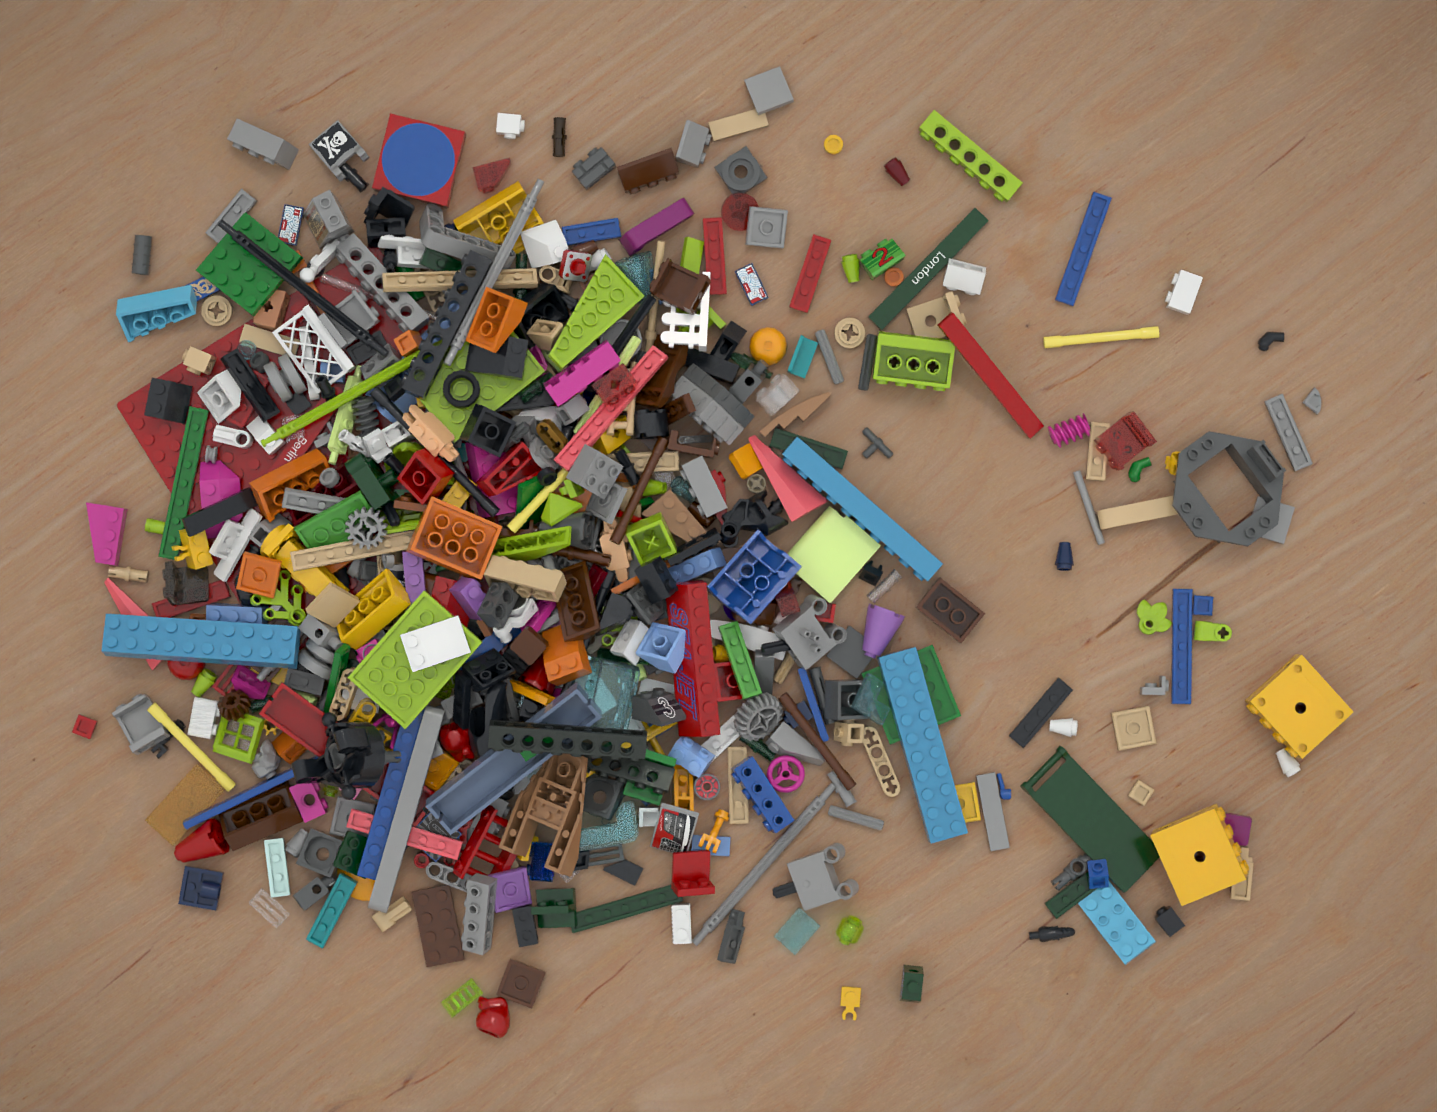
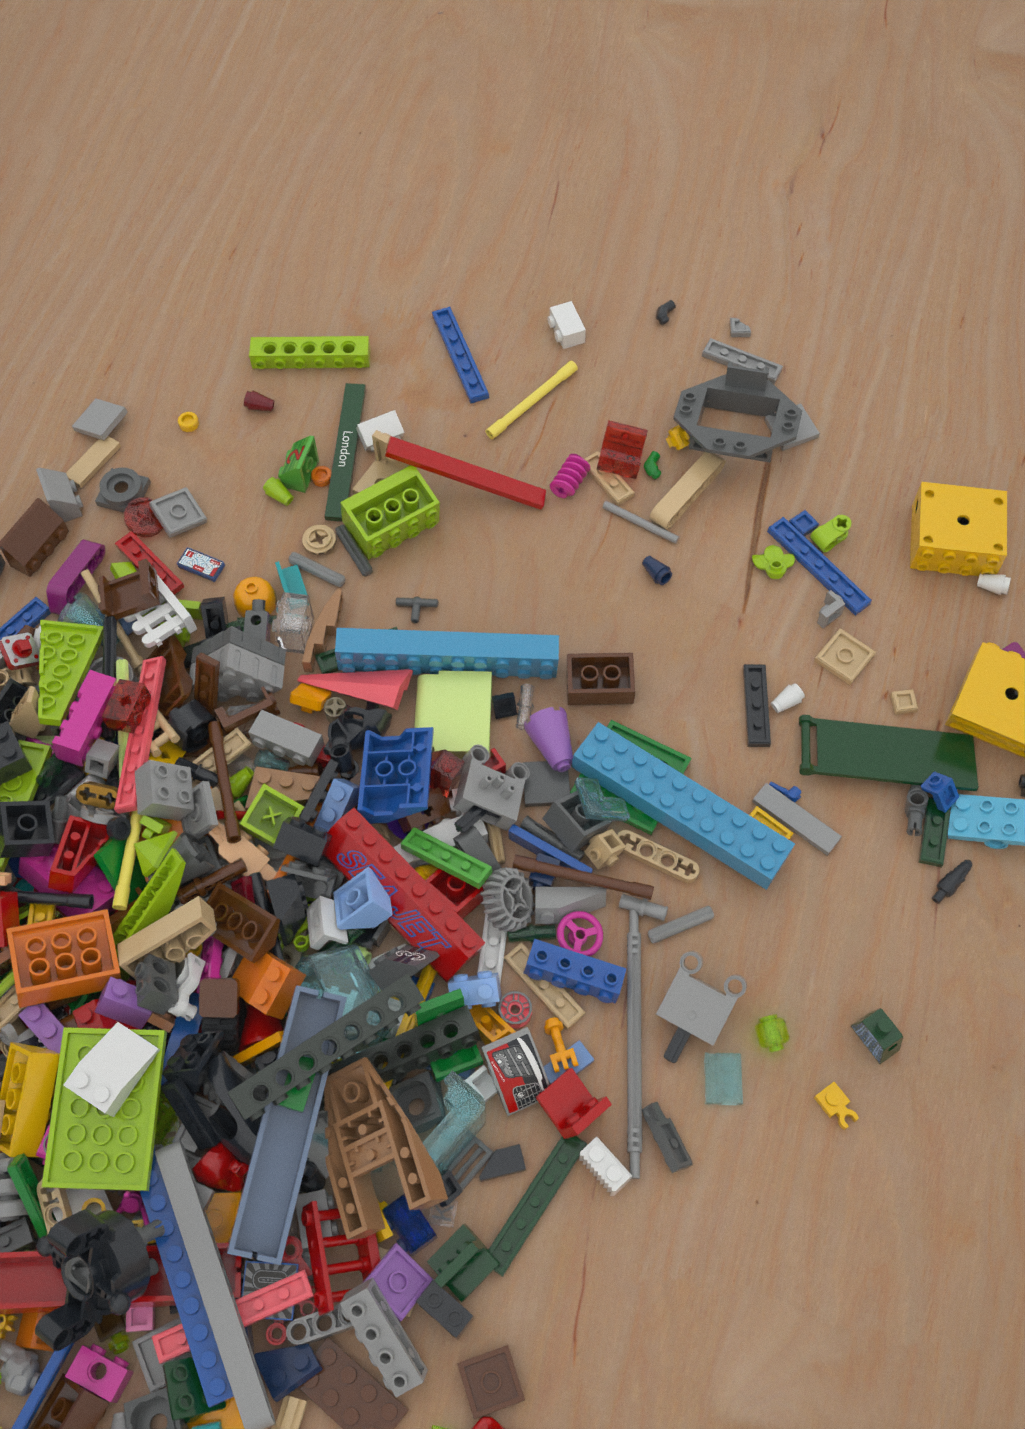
camera: 40 degrees left, 25 degrees down
(414, 884) = (287, 1368): none -> dark blue wing
(810, 273) = (246, 520): red plate -> none

